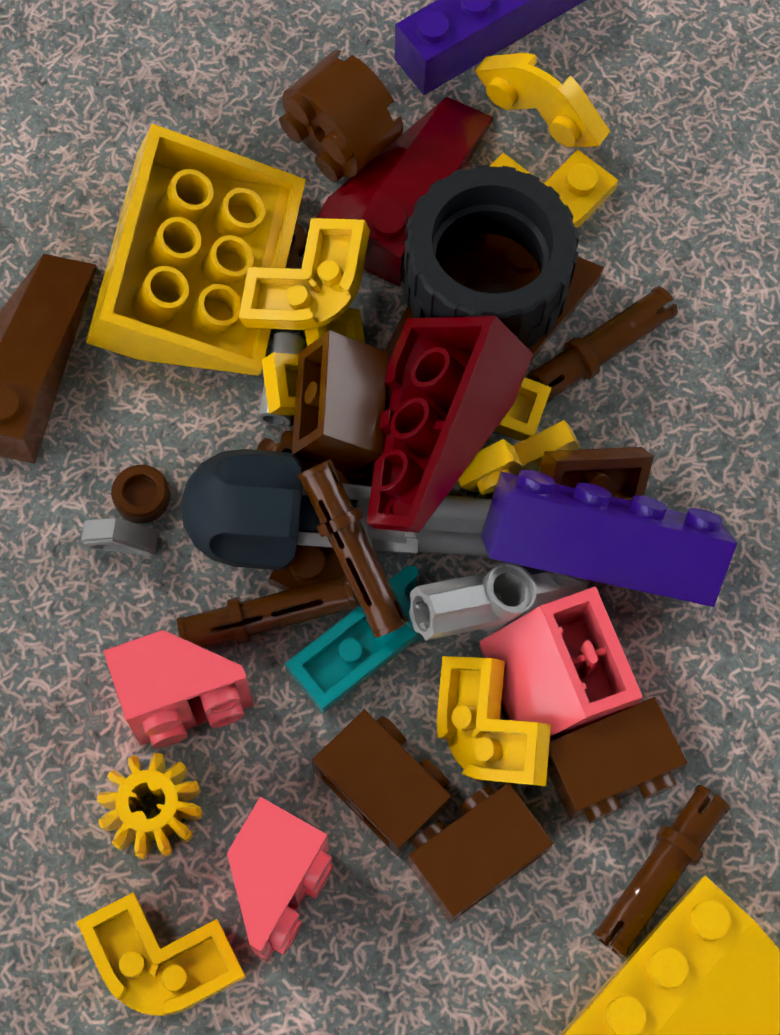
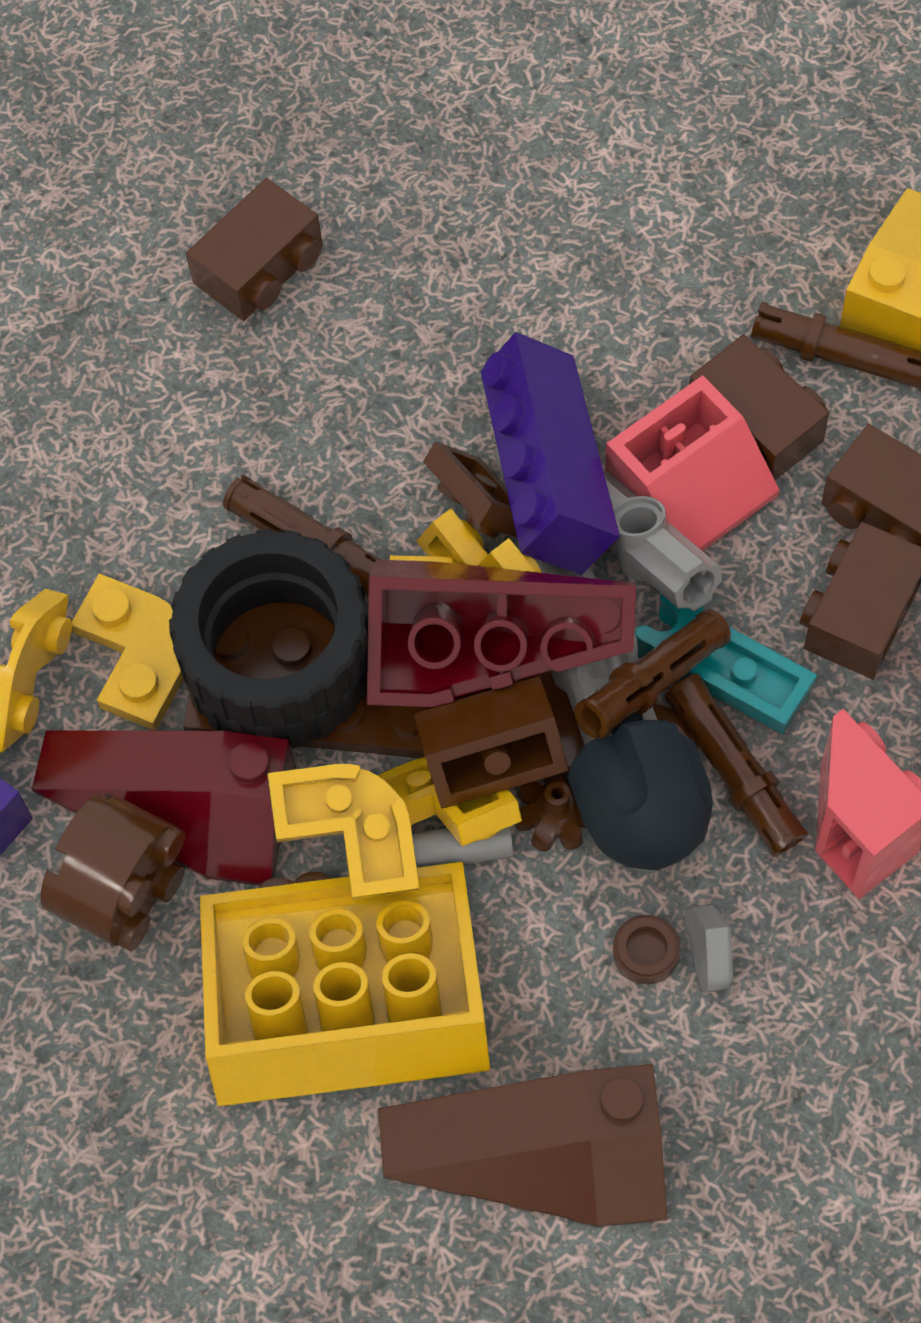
camera: 100 degrees left, 5 degrees down
(475, 734) = (791, 518): yellow plate -> none

